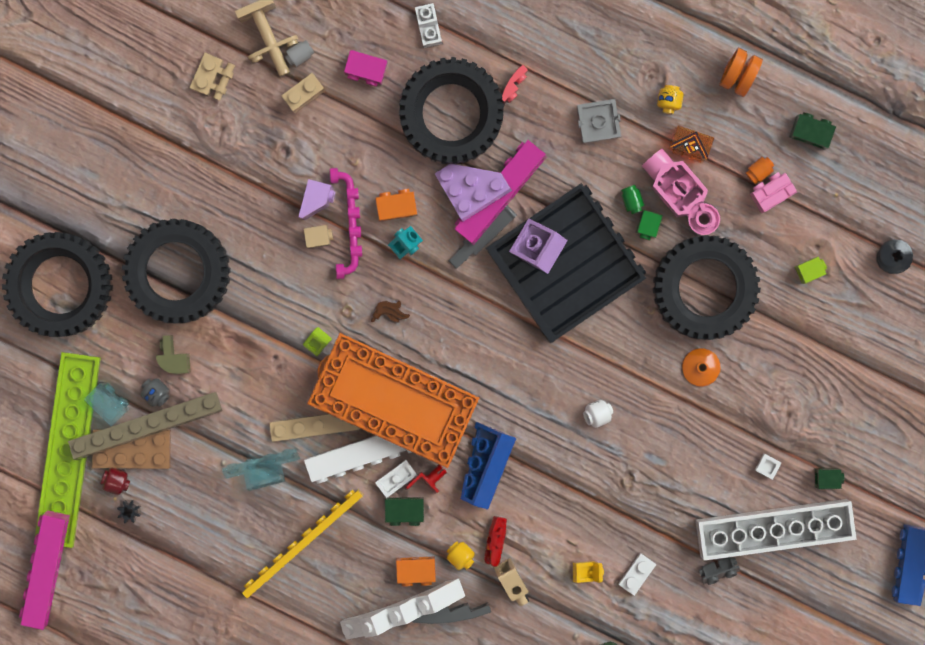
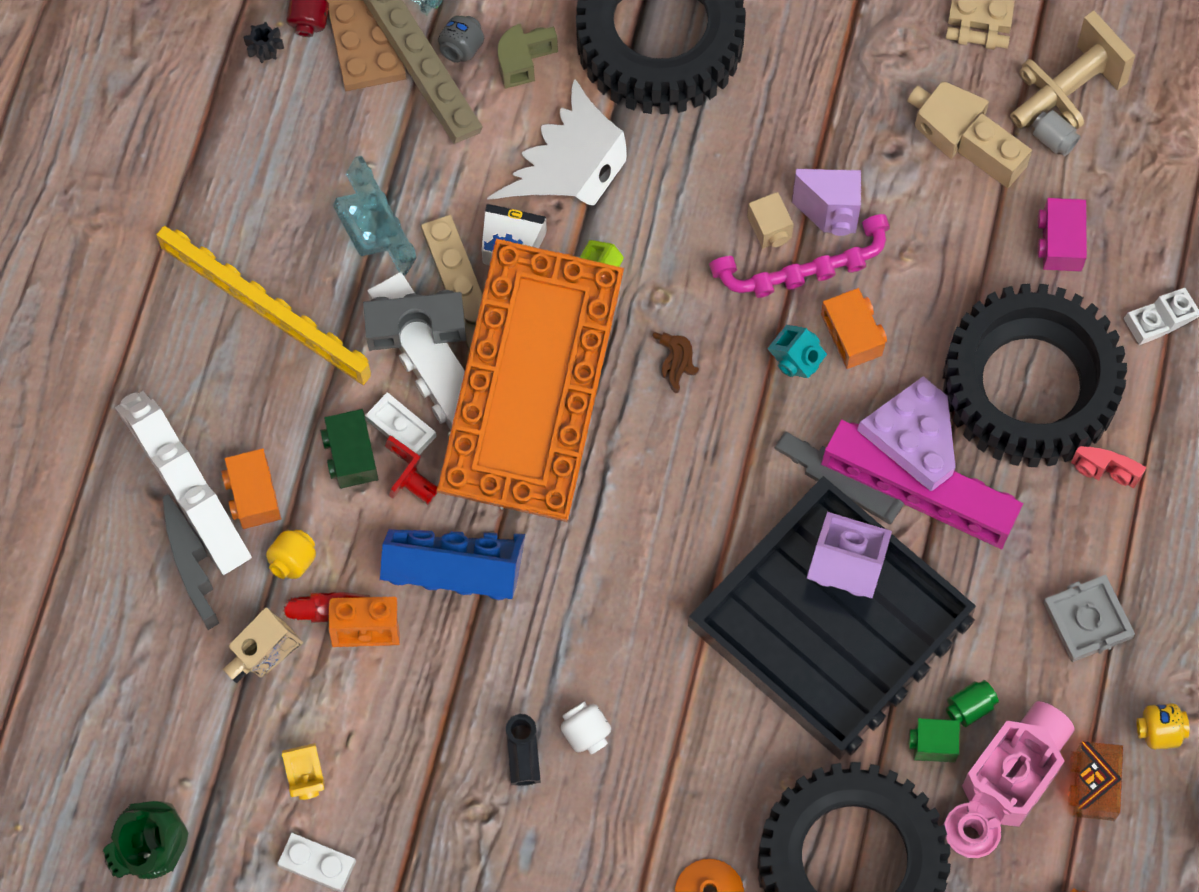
camera: 80 degrees right, 20 degrees down
(249, 340) = (572, 155): none -> white piece
(273, 114) = (946, 114): none -> tan torso
(293, 391) = (512, 227): none -> white torso
(337, 476) = (388, 317): none -> dark grey arch
(509, 523) = (363, 621): none -> orange bracket
(604, 450) = (523, 753): none -> black piece

